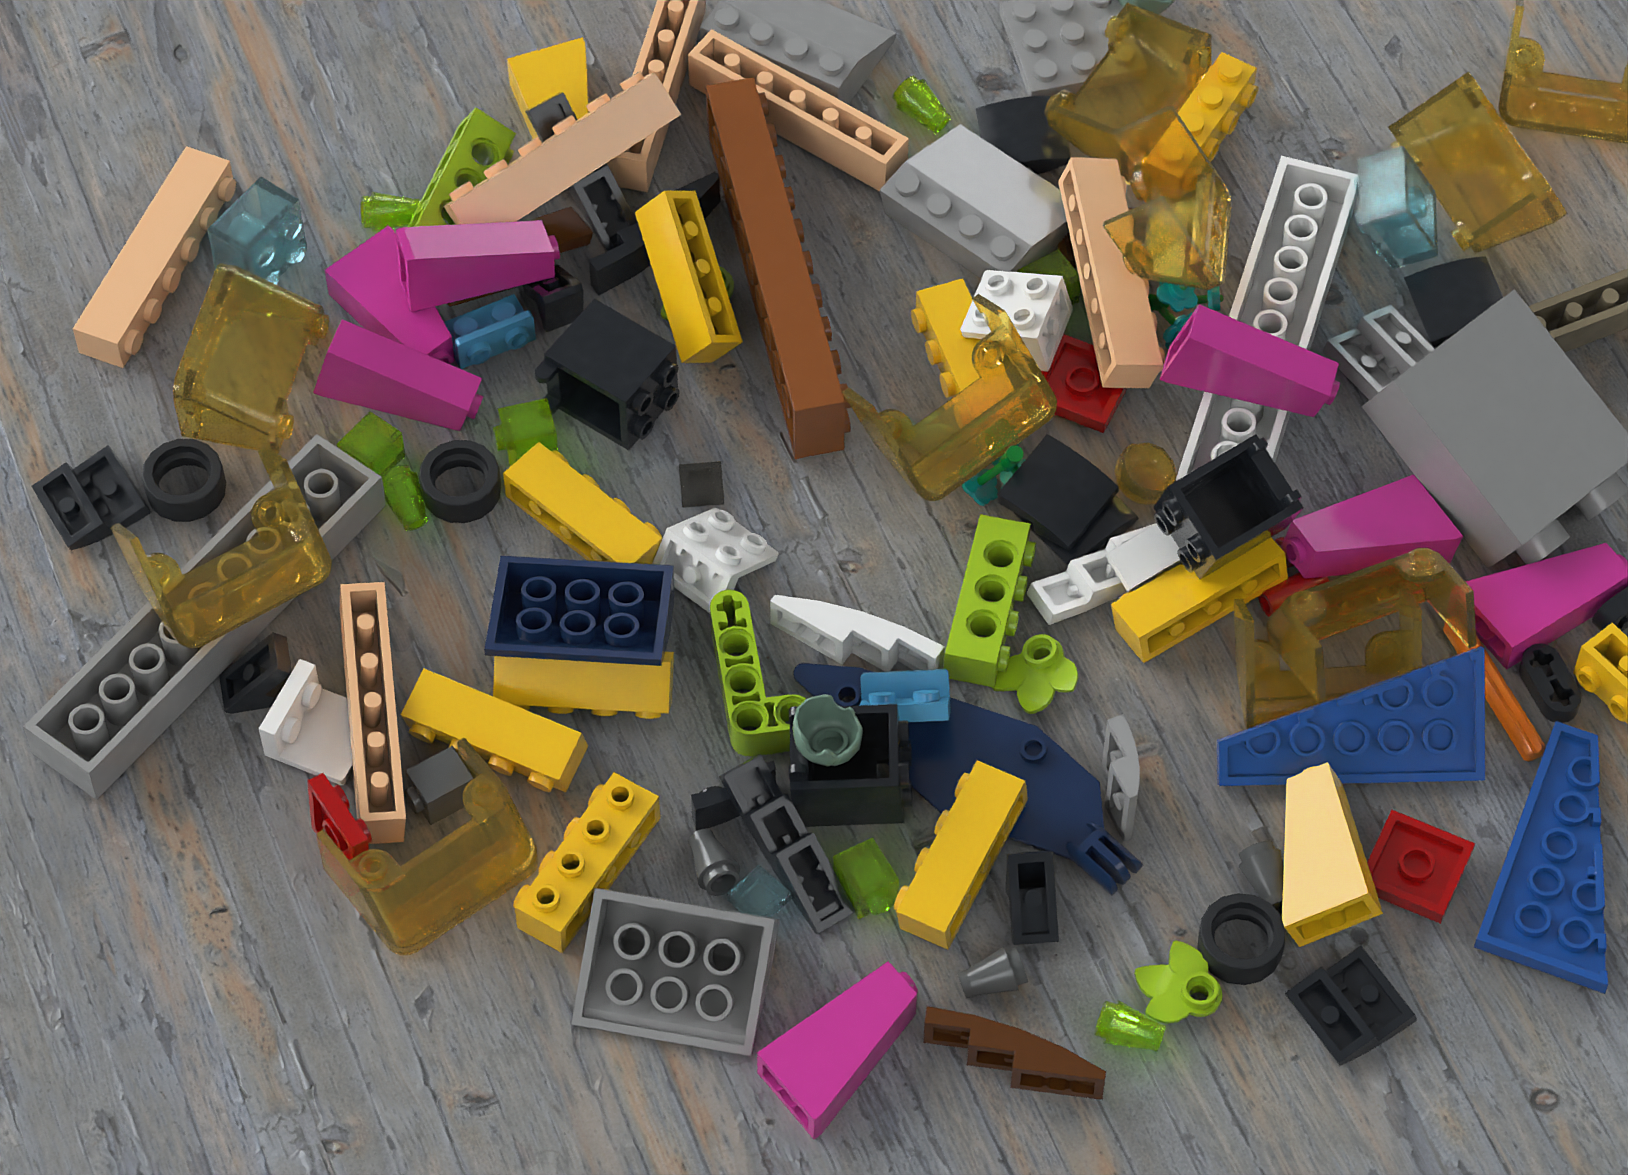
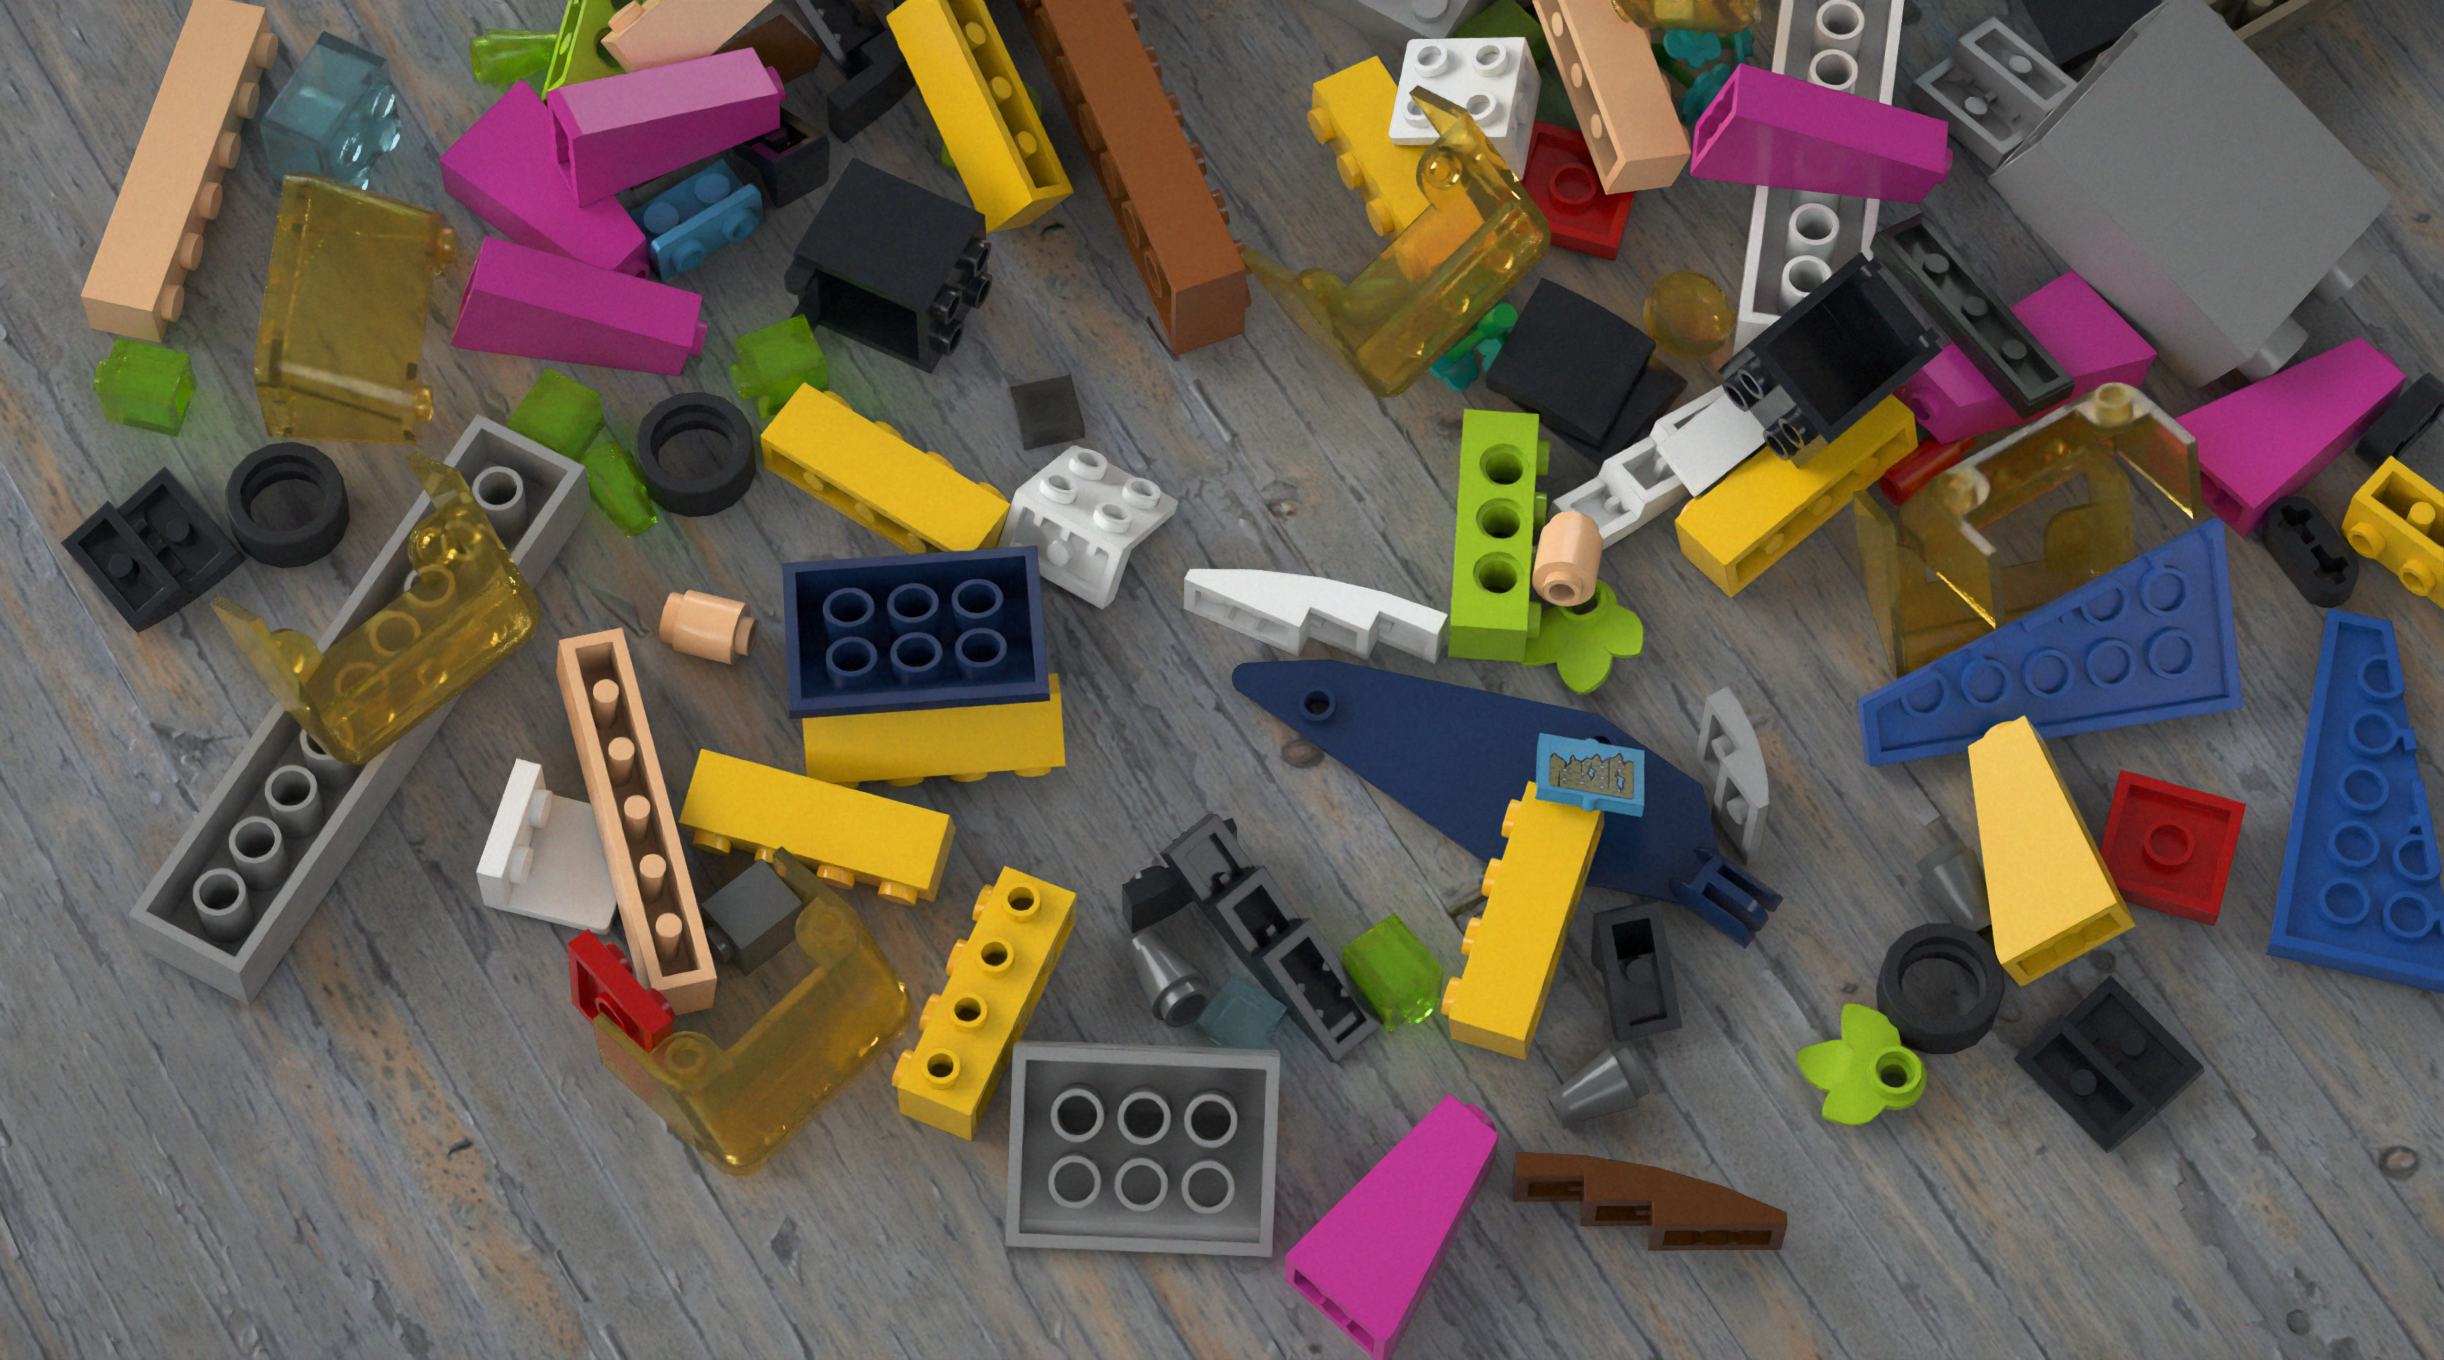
camera: 10 degrees left, 5 degrees up
(106, 393) = (145, 386): none -> clear neon green brick
(257, 676) = (454, 790): black slope -> none
(447, 593) = (708, 626): none -> light nougat brick
(745, 673) = (1167, 689): lime beam -> none
(826, 731) = (1313, 772): sand green hair -> none
(851, 790) = (1324, 811): black container -> none
(919, 693) = (1404, 698): dark azure bracket -> none
(1020, 762) = (1590, 775): none -> dark azure piece
(1032, 620) = (1568, 559): none -> light nougat brick
(1128, 1027) = (1801, 1140): clear neon green cone -> none
(1336, 494) = (1972, 316): none -> pearl dark grey tile
(1504, 704) = (2251, 591): orange axle -> none

